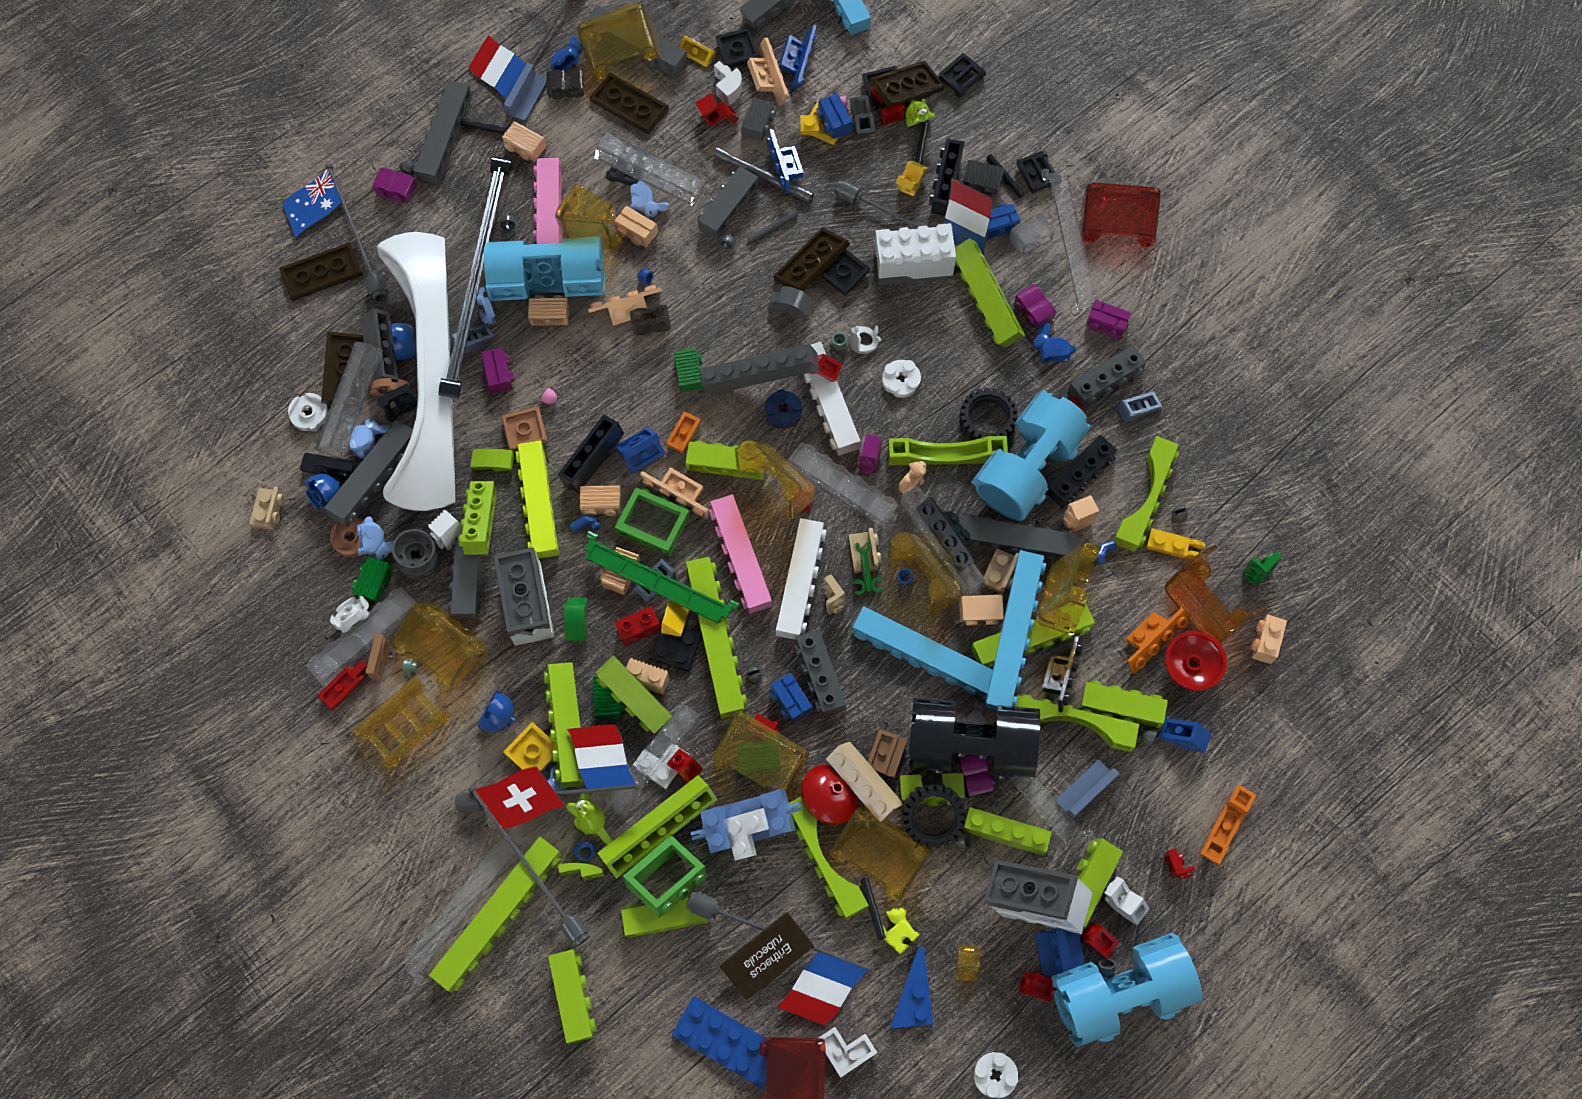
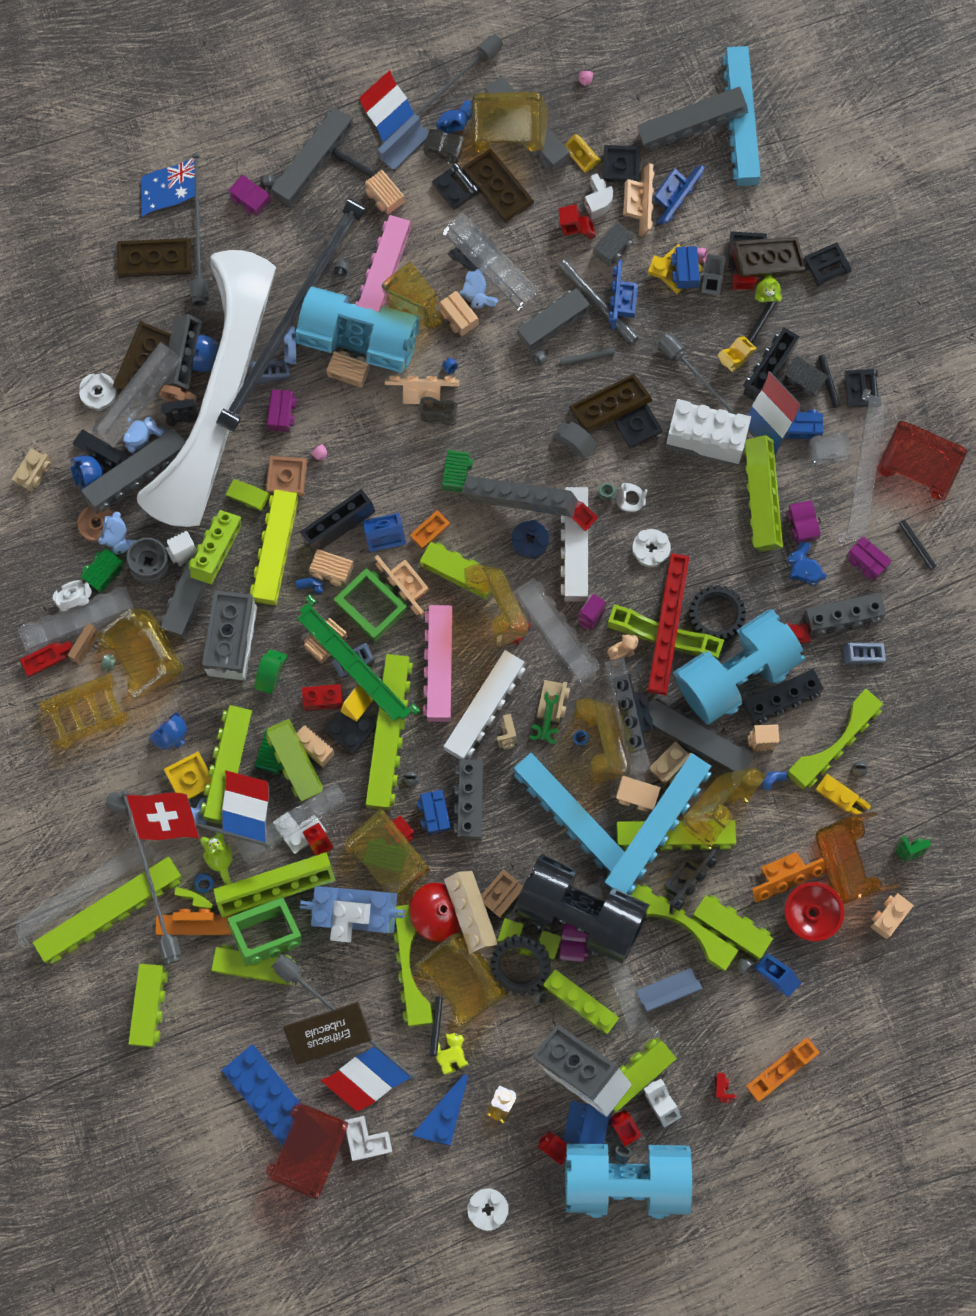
camera: 20 degrees right, 5 degrees up
(586, 121) = (451, 191): none -> black plate
(589, 895) = (194, 923): none -> orange bracket
(947, 442) = (668, 624): none -> red tile
(1147, 293) = (917, 544): none -> black bar

